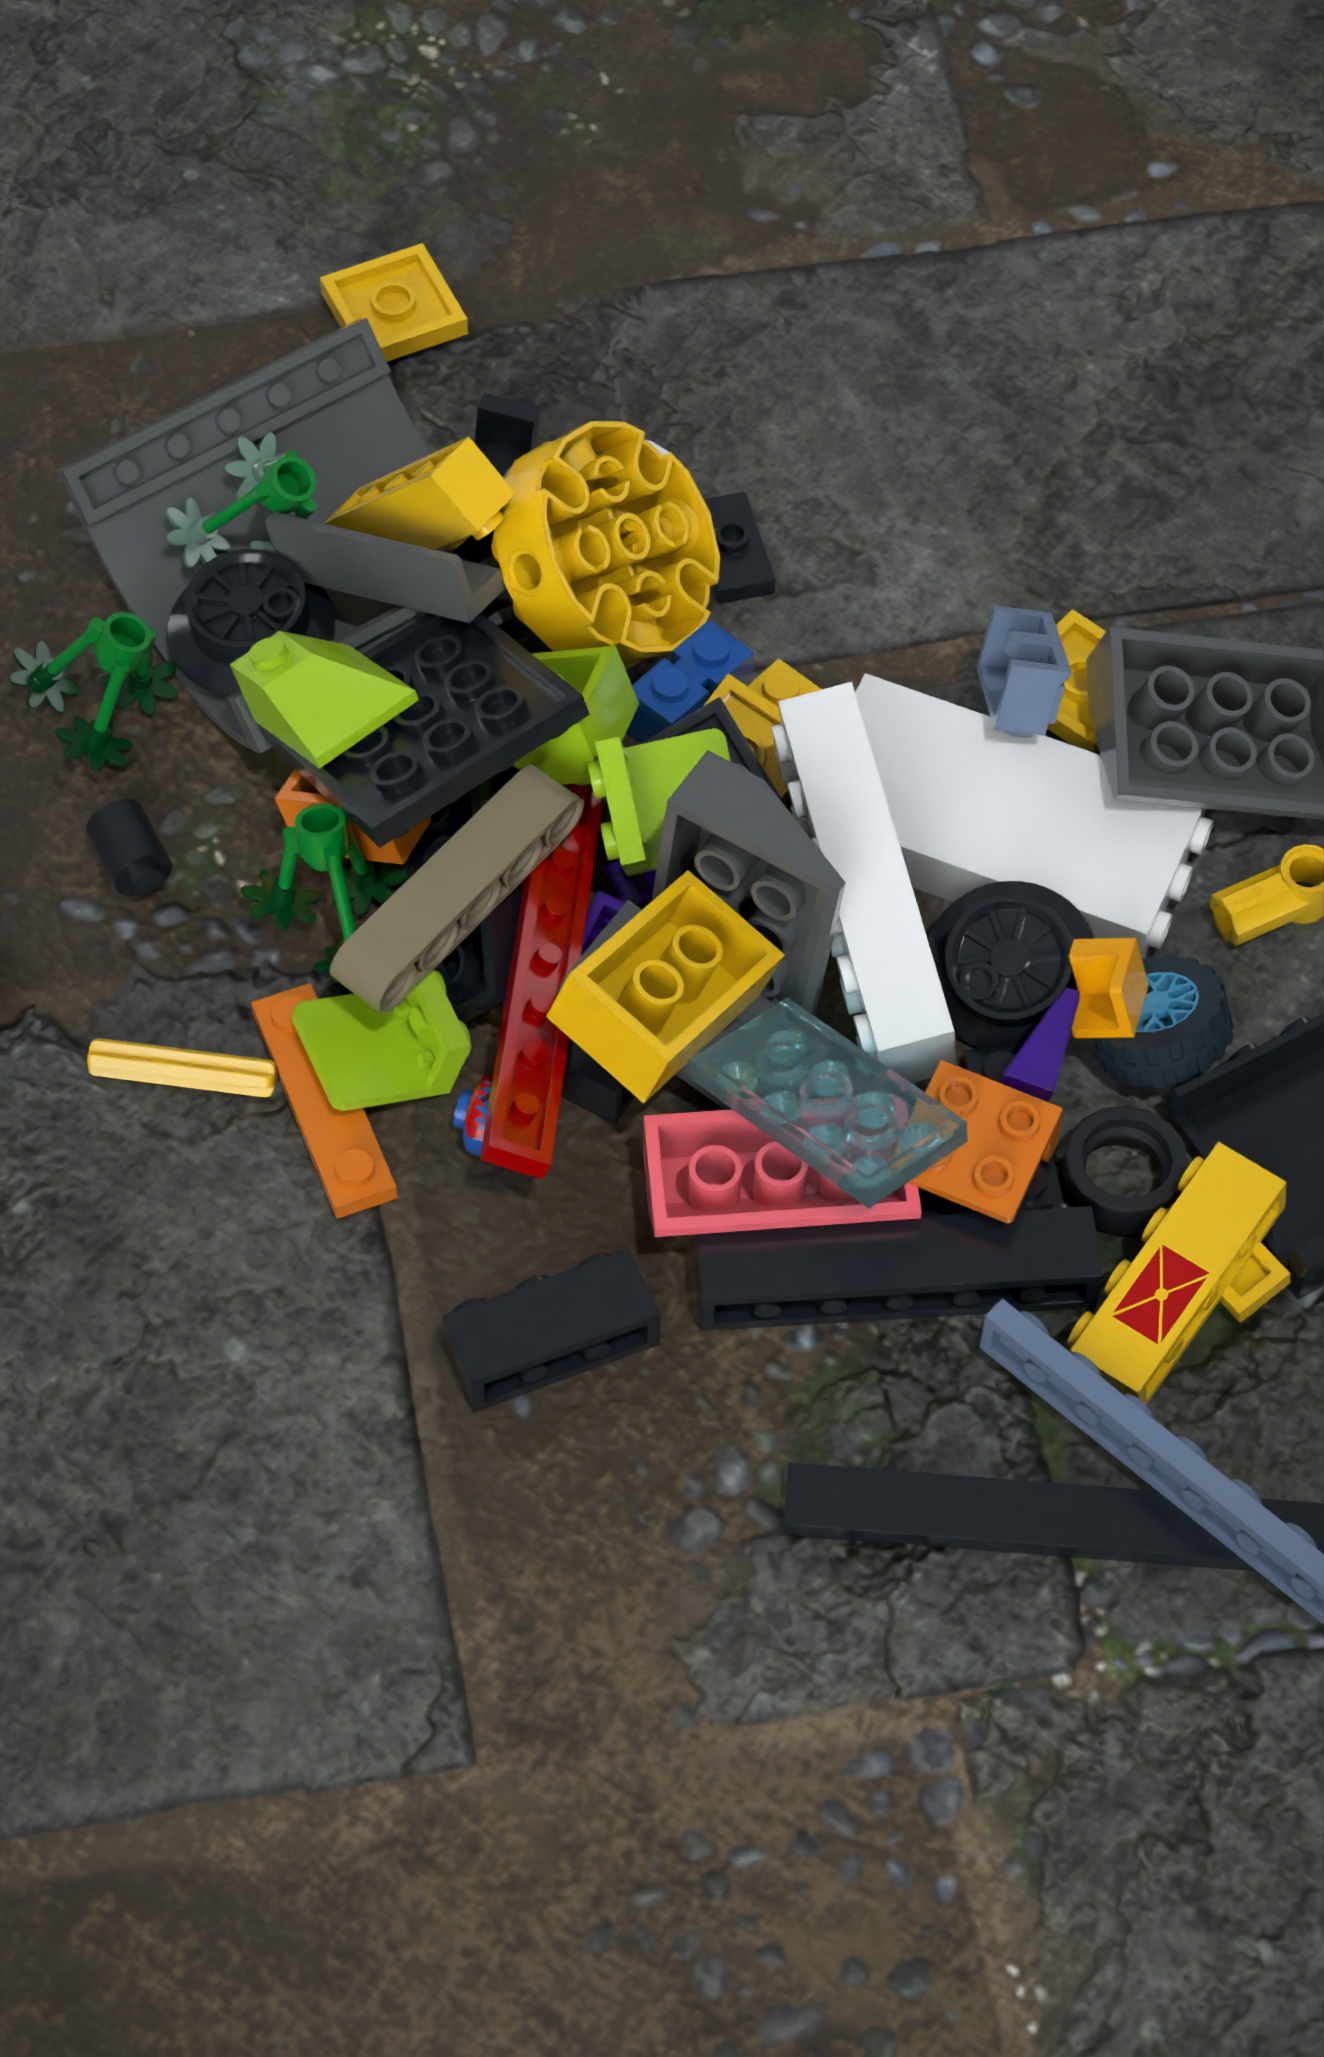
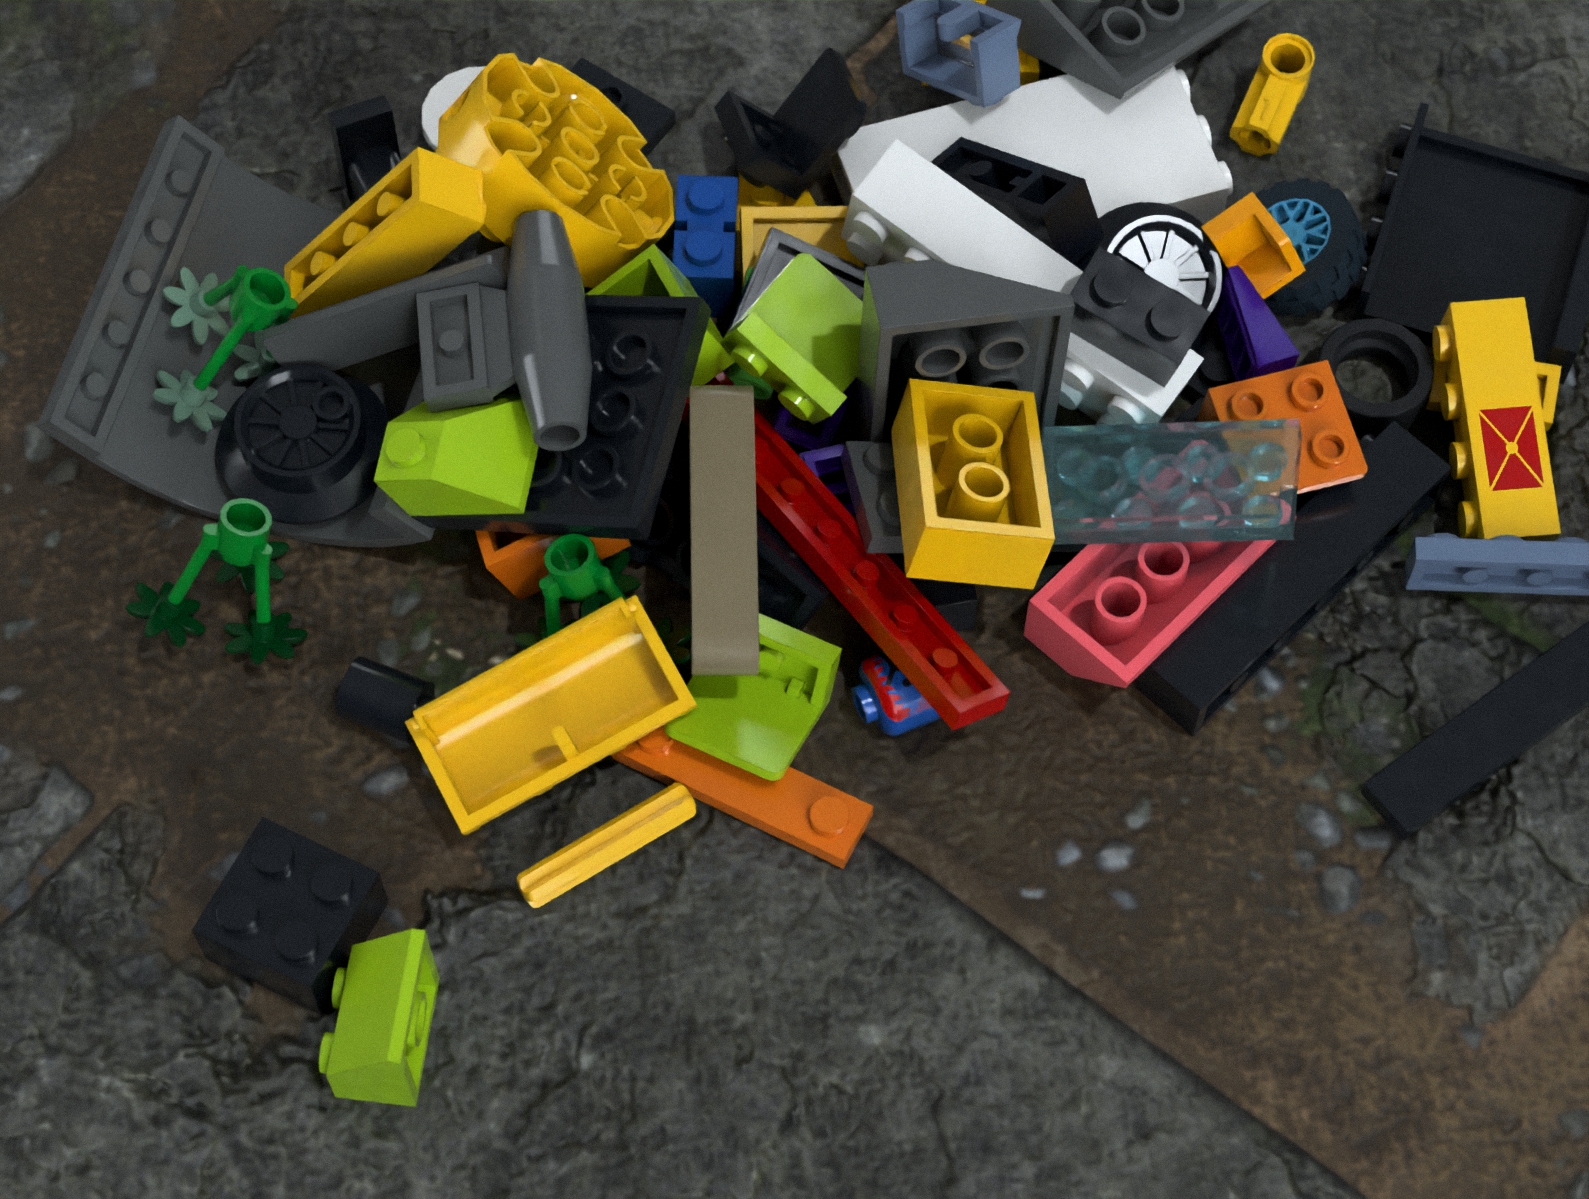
camera: 40 degrees left, 5 degrees up
(220, 933) = (549, 712): none -> yellow container
(400, 298) = (138, 89): yellow plate -> none
(426, 633) = (530, 335): none -> dark grey plate
(551, 1329) = (1098, 821): black brick -> none
(814, 651) = (802, 135): none -> black bracket
(907, 947) = (1134, 317): none -> black brick
(945, 820) = (1034, 196): none -> black slope

